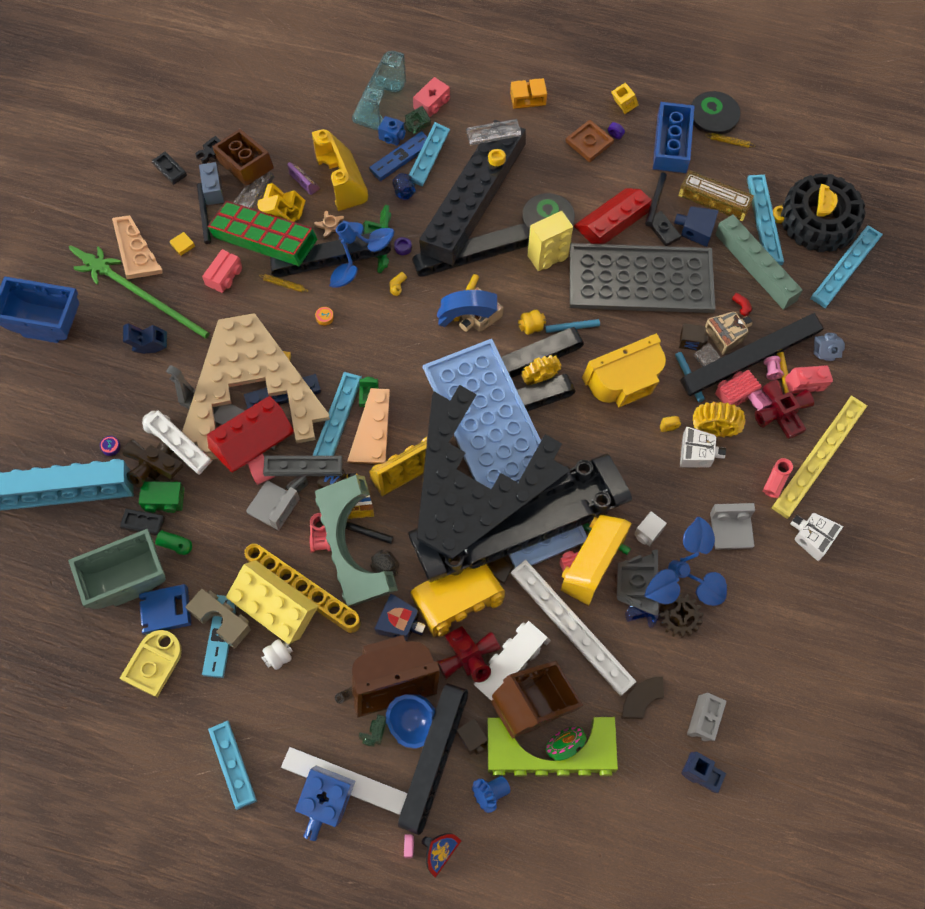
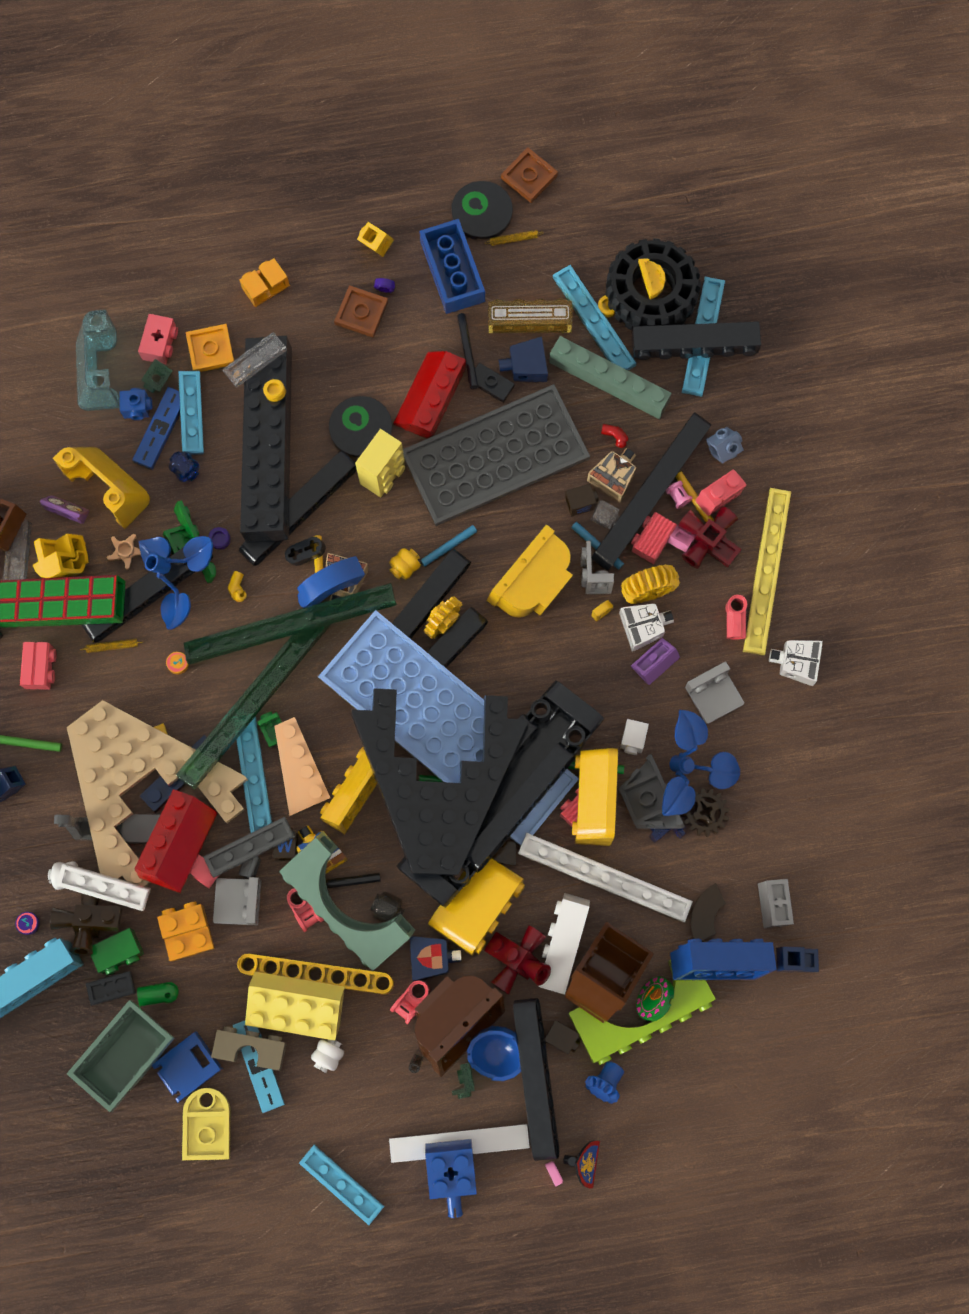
camera: 25 degrees left, 10 degrees up
(221, 507) = (185, 931): none -> light orange plate
(362, 641) = (409, 1002): none -> coral piece
(364, 363) = (248, 706): none -> clear green plate
(423, 323) = (289, 623): none -> clear green plate
(461, 280) = (304, 548): none -> black beam
(465, 116) = (210, 348): none -> light orange plate
(639, 737) = (723, 960): none -> blue brick
(676, 398) = (596, 583): none -> light grey bracket
(695, 482) = (655, 661): none -> medium lavender slope
(762, 103) = (529, 175): none -> dark orange plate
(840, 263) = (696, 340): none -> black brick

